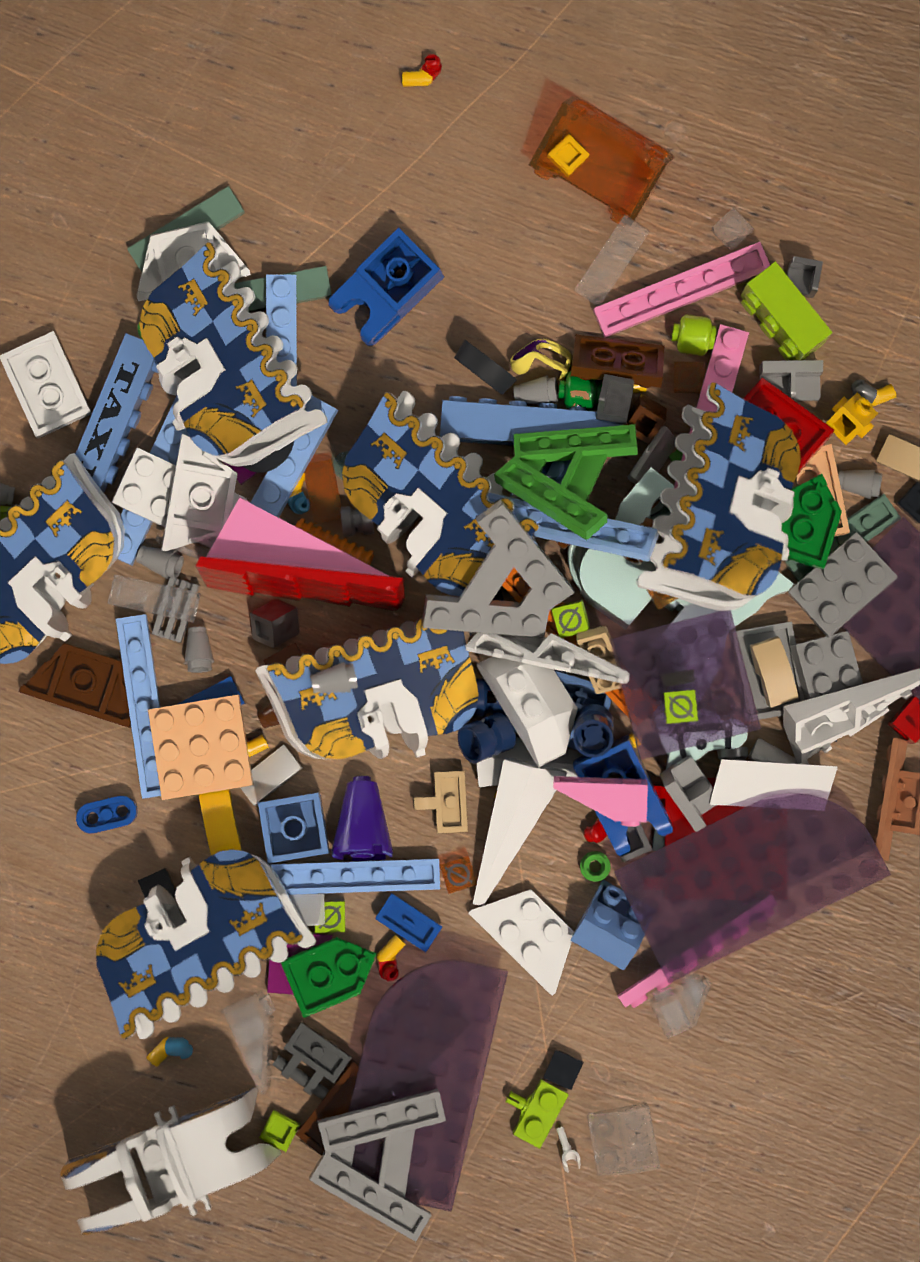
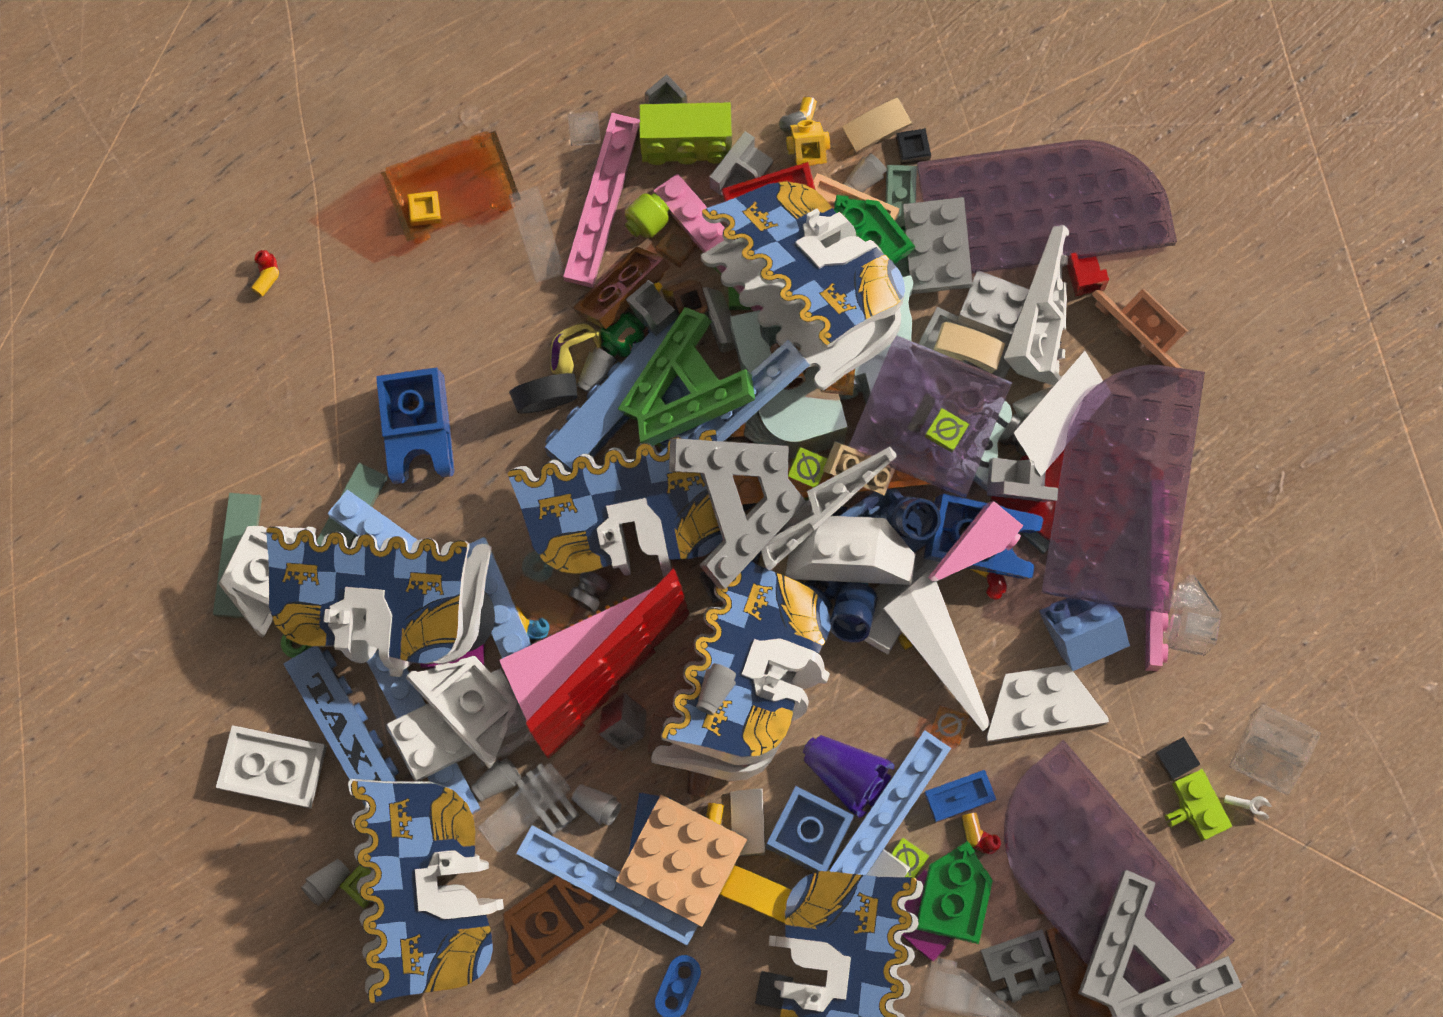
camera: 55 degrees left, 10 degrees down
(448, 802) = (881, 688): tan plate -> none
(595, 876) = (1030, 601): bright green plate -> none
(638, 843) = (1033, 554): flat silver panel -> none

